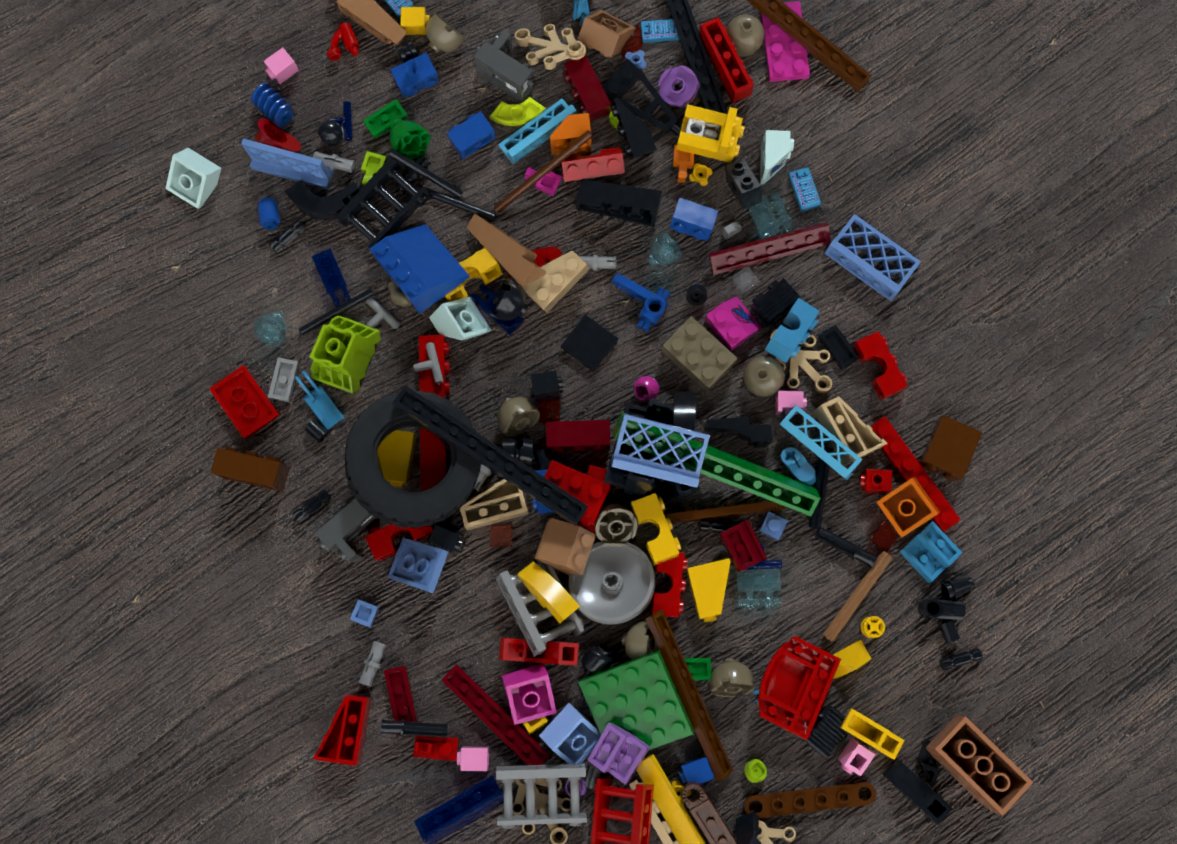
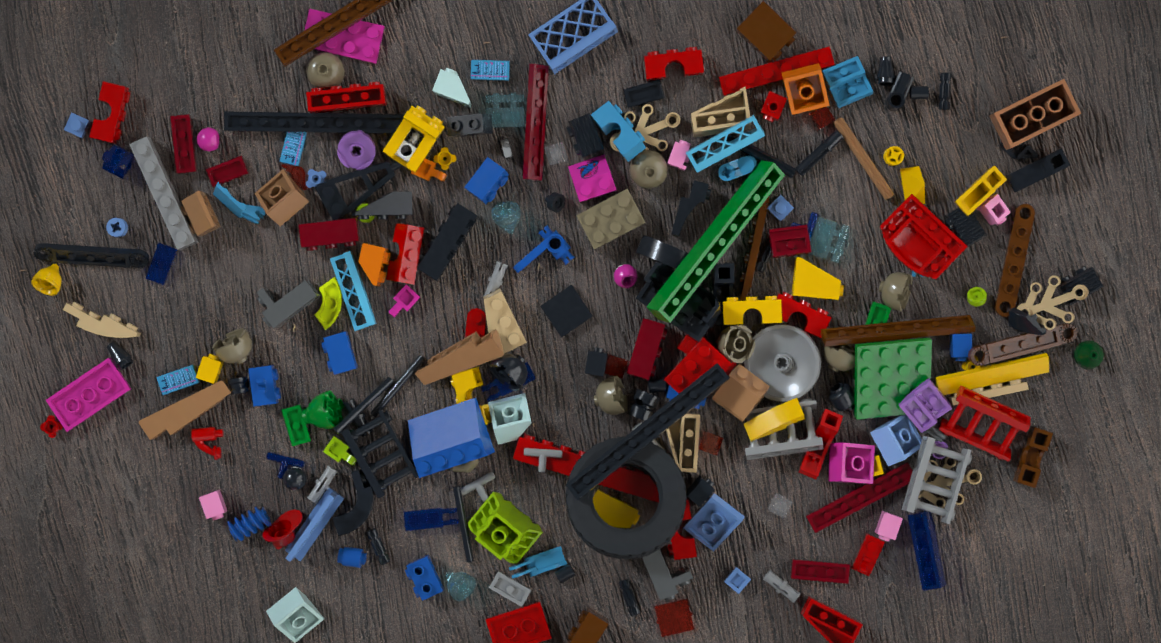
camera: 75 degrees left, 10 degrees up
(269, 290) = (424, 577): none -> blue brick
(304, 560) = (674, 617): none -> clear red piece
(414, 728) = (848, 567): black axle -> none
(459, 632) = (779, 505): none -> clear plate
(573, 147) = (390, 267): reddish brown bar -> none
(574, 50) = (280, 251): tan plant -> none
(657, 469) = (705, 298): medium blue fence -> none

